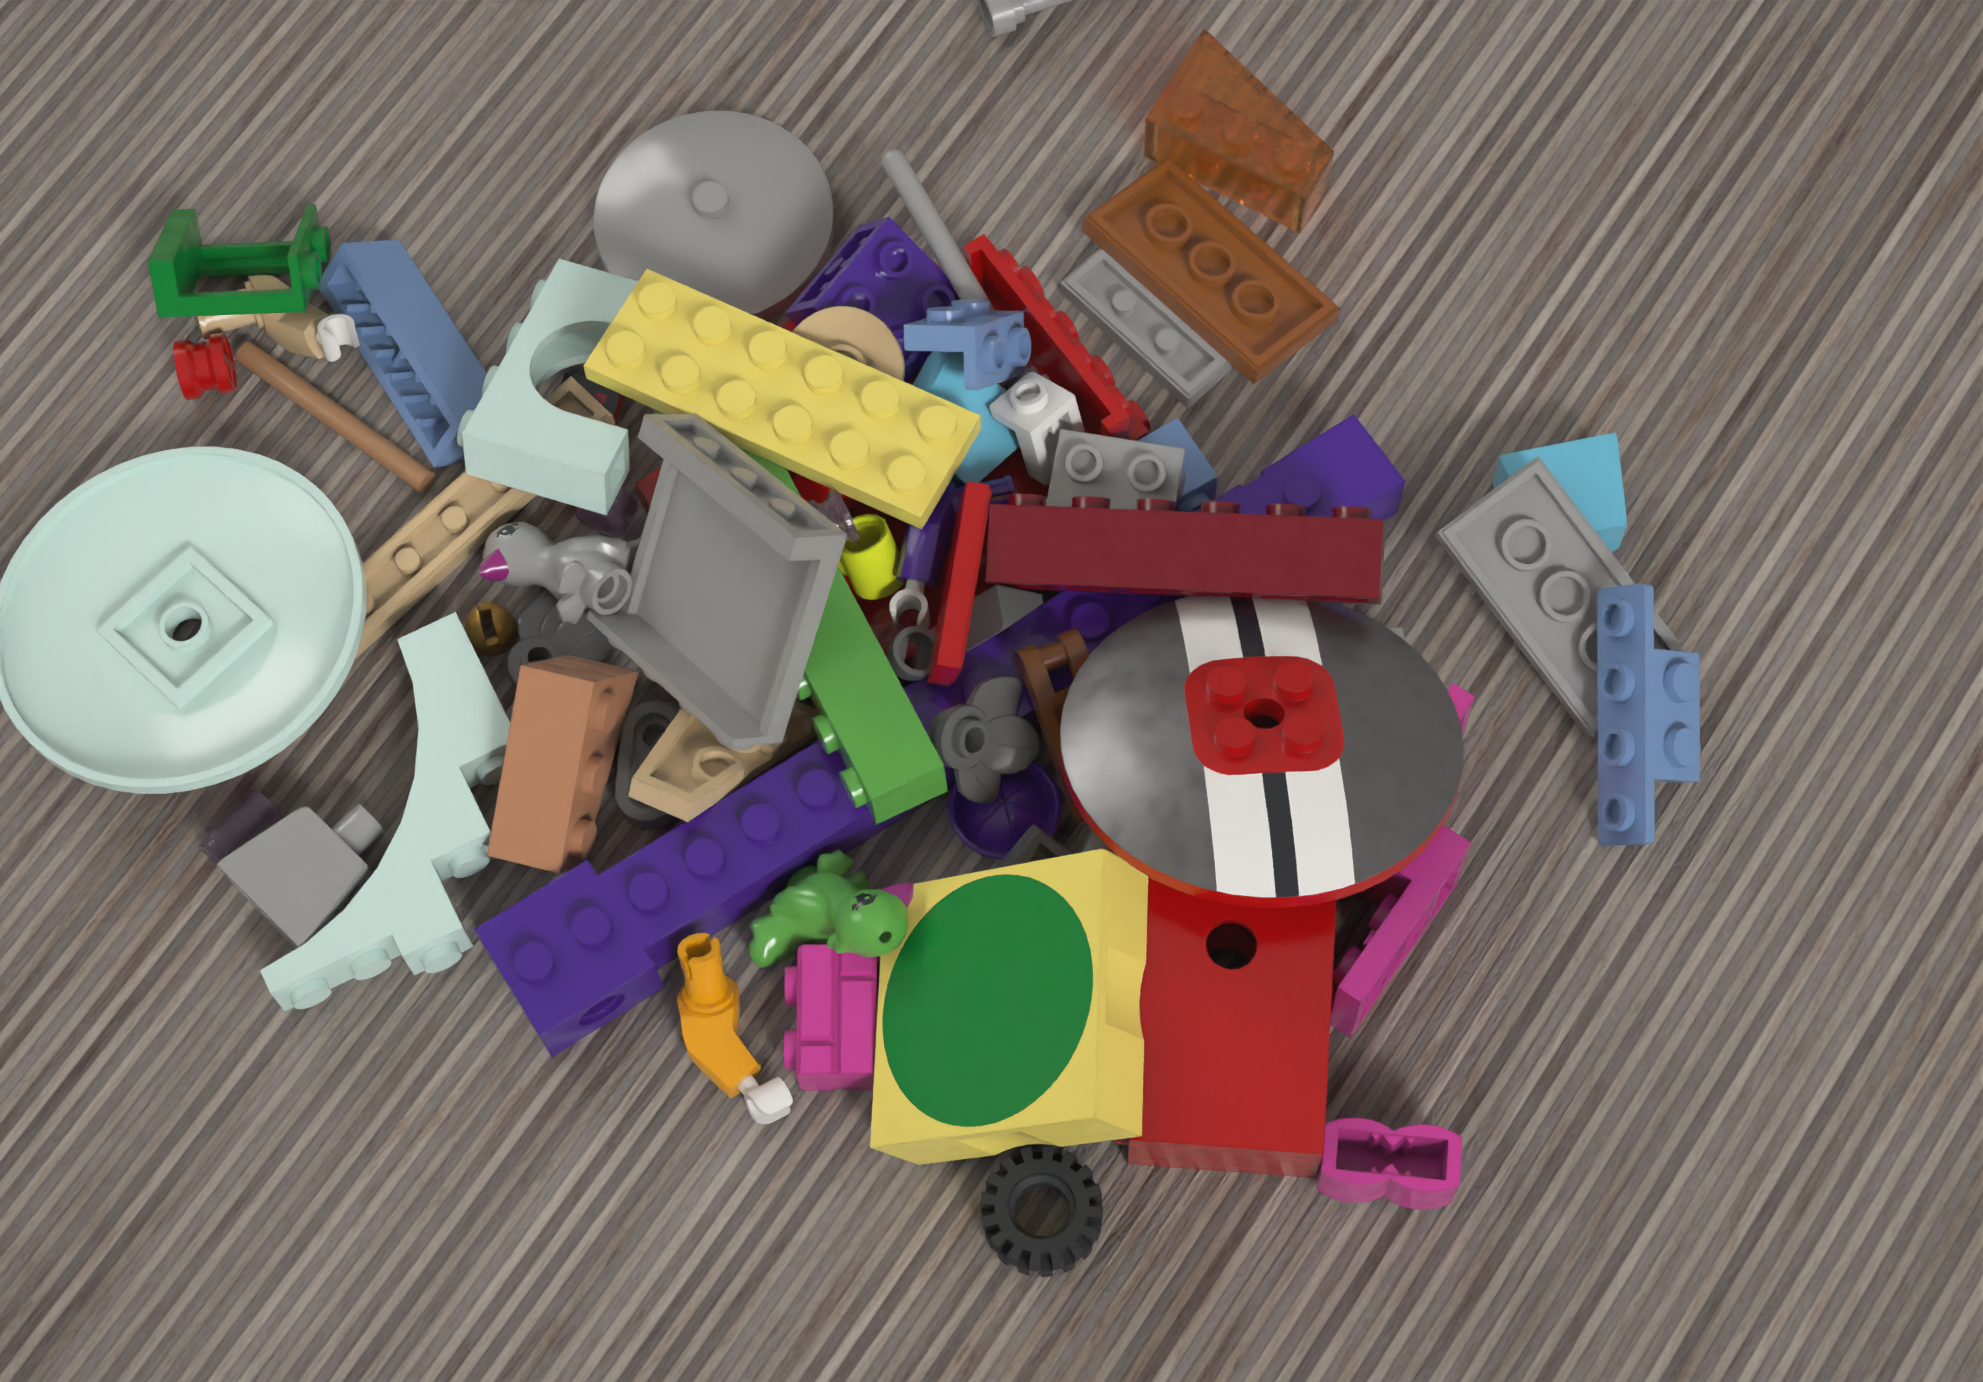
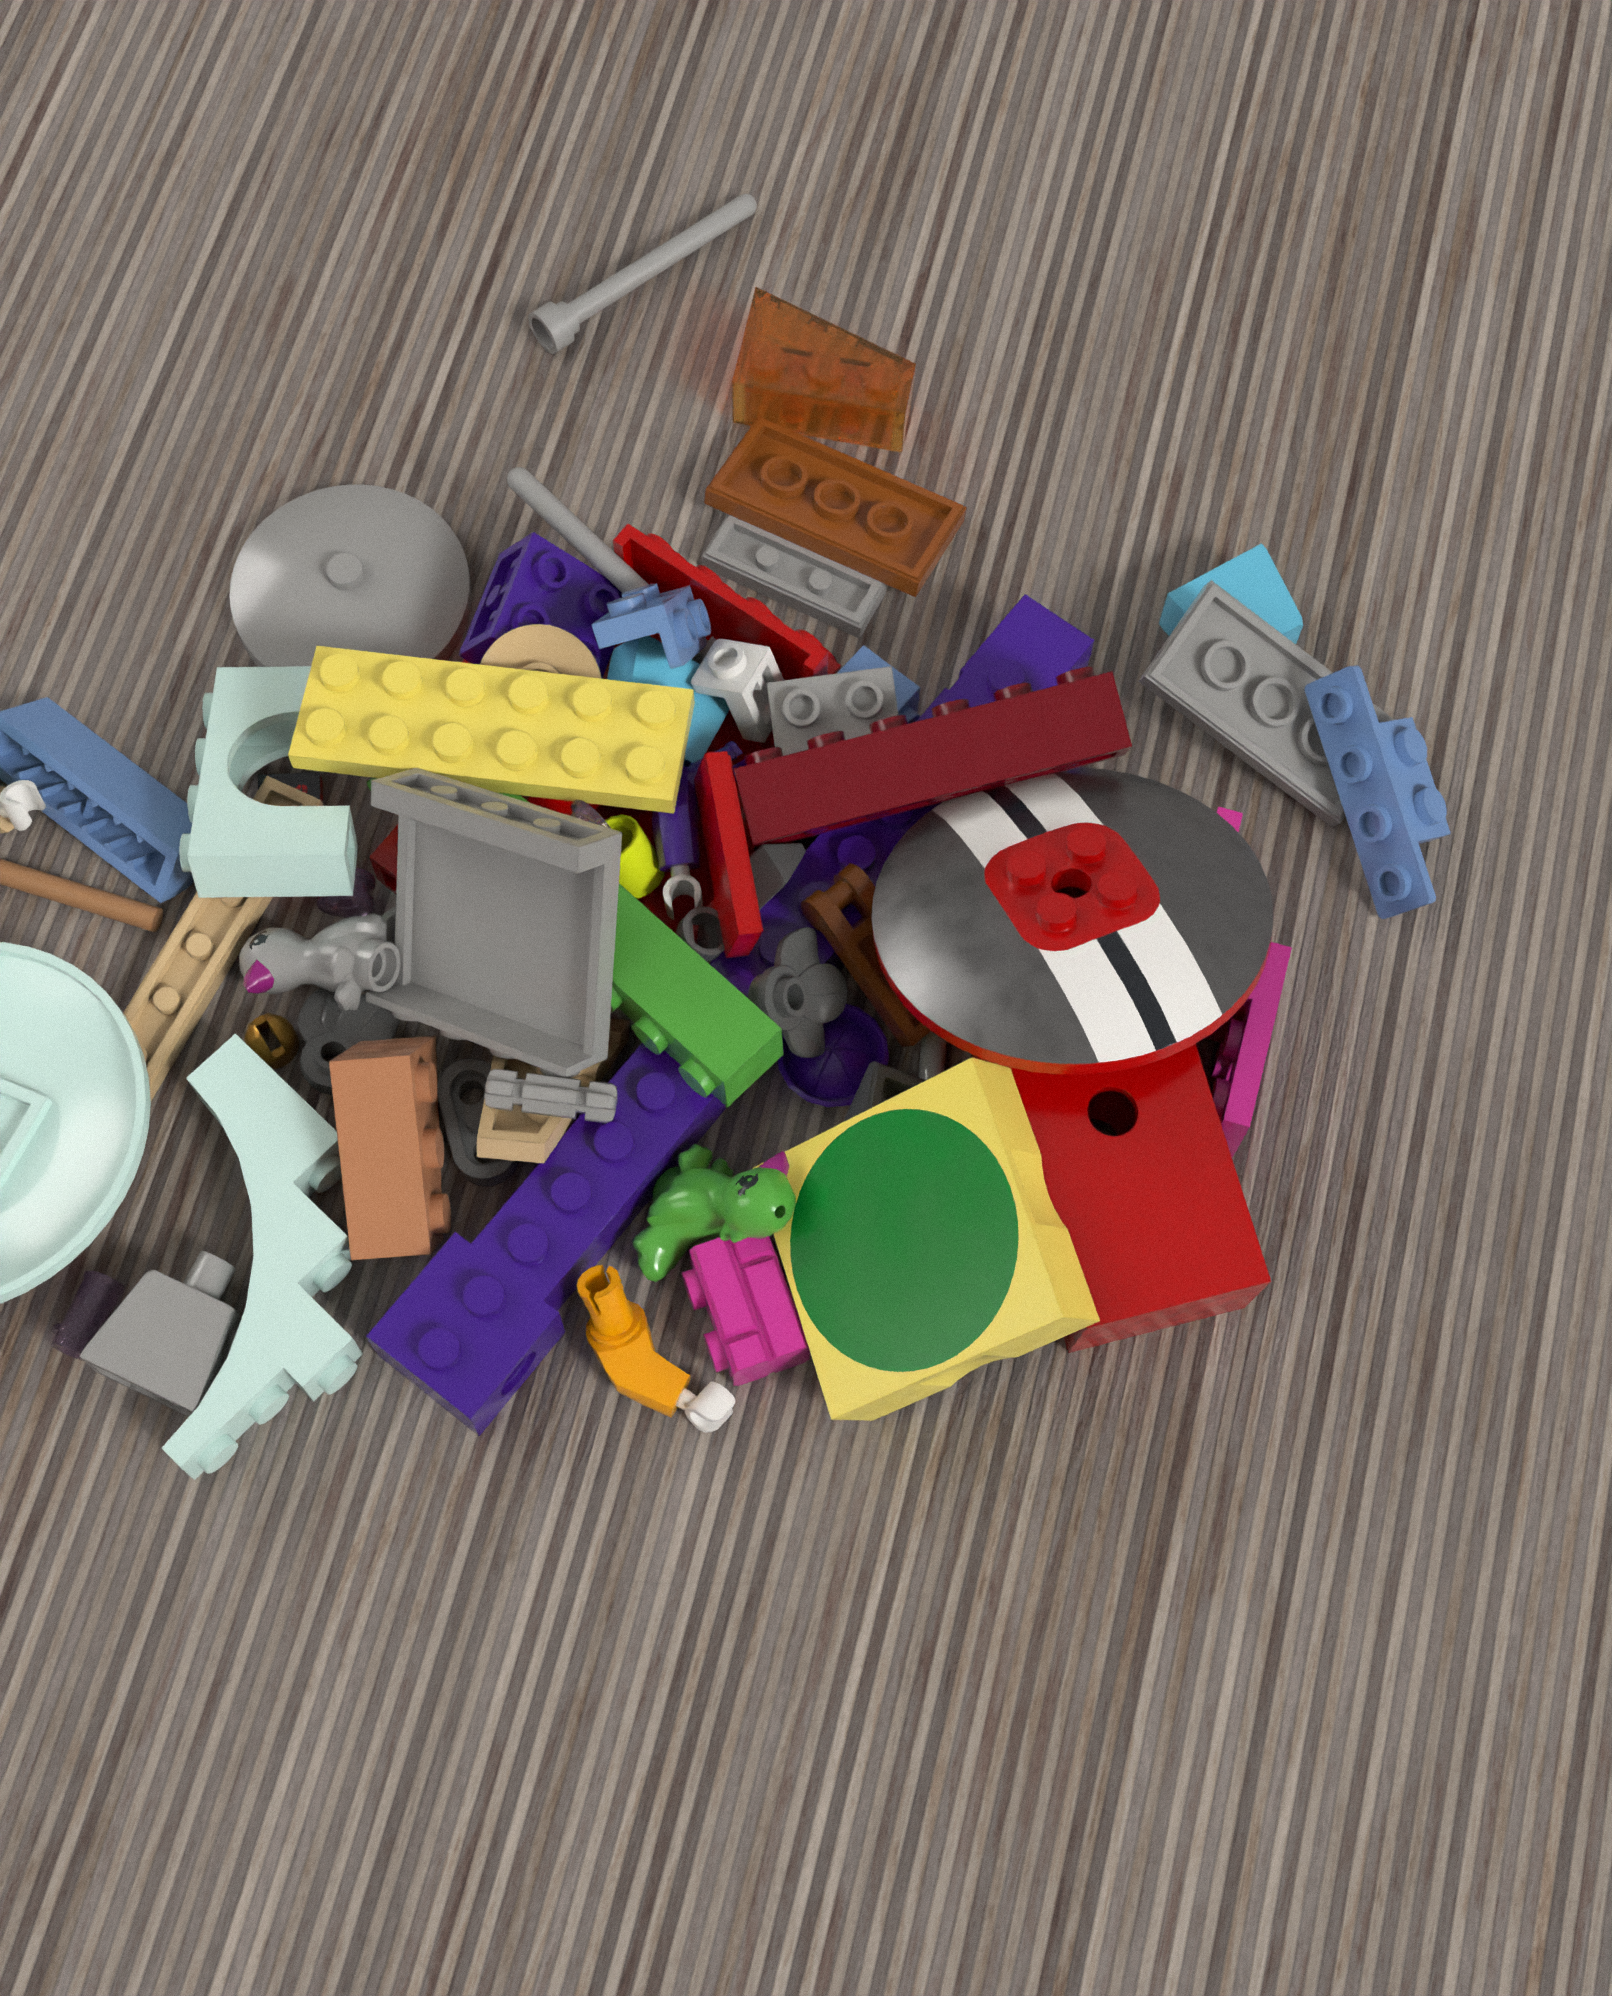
camera: 25 degrees left, 0 degrees up
(715, 761) = (551, 1095): none -> light grey axle
(1050, 1171) = (1023, 1386): black tyre -> none
(1407, 1166) = (1329, 1271): dark pink brick -> none

